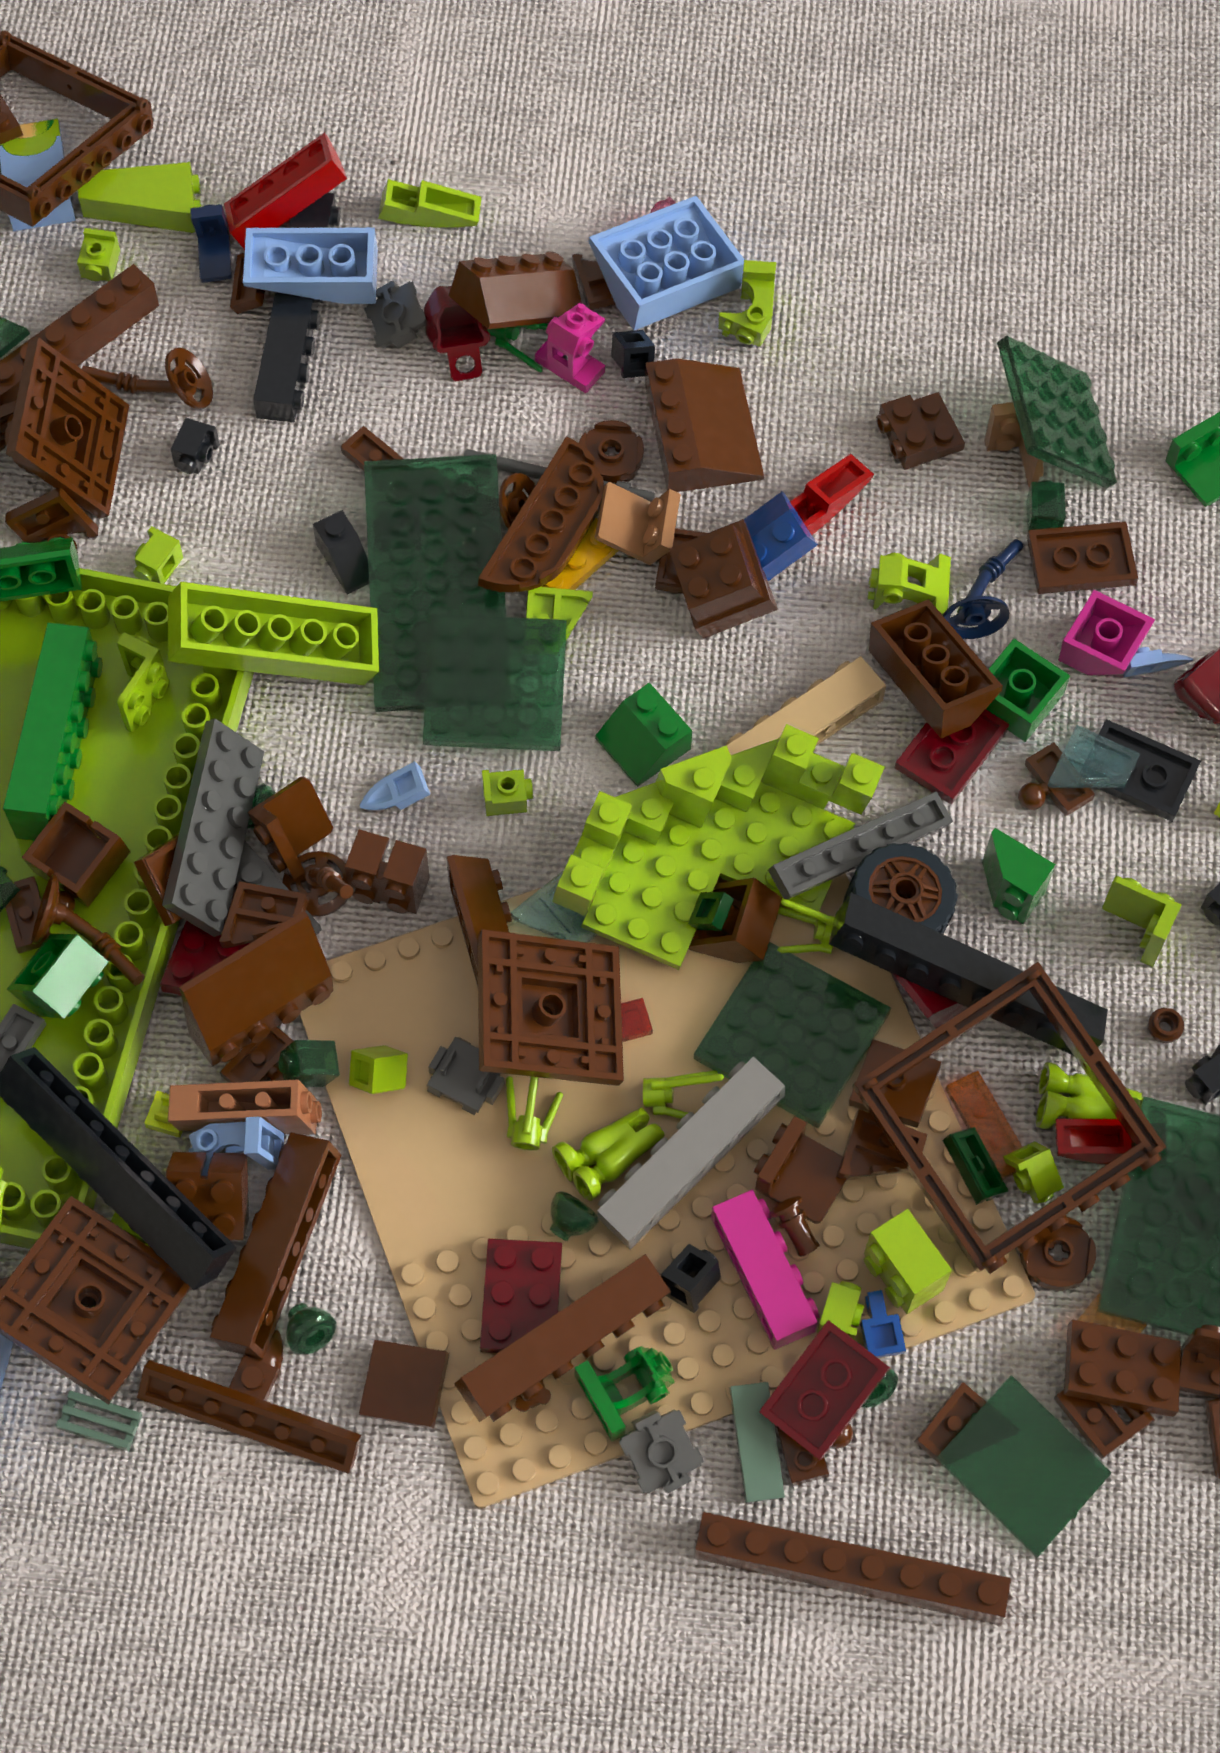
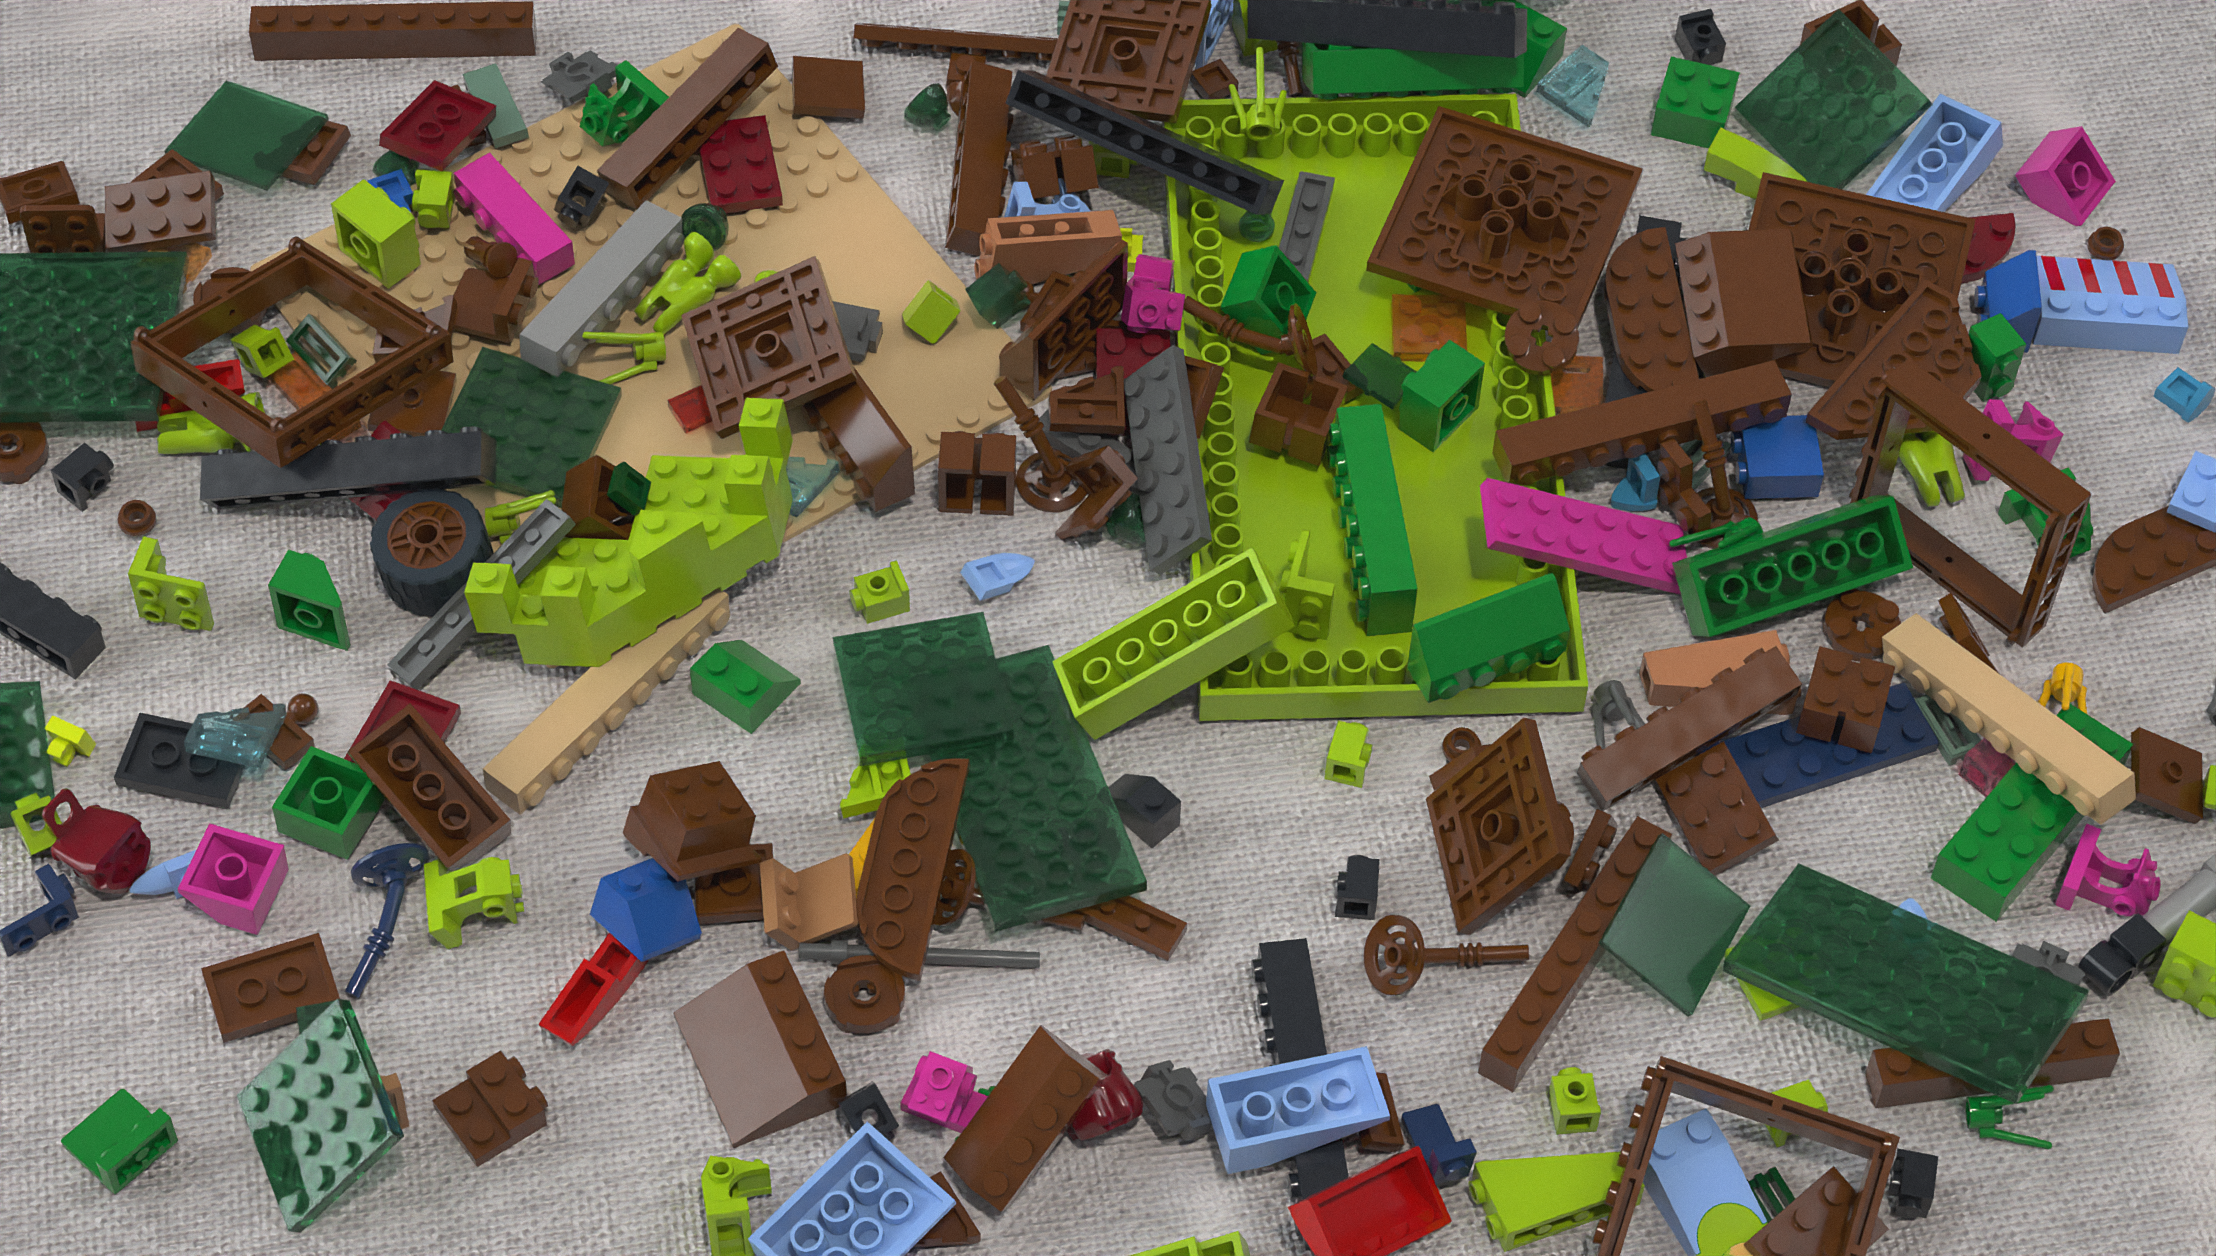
camera: 165 degrees right, 10 degrees down
(169, 1027) = (1146, 305): none -> dark pink tile

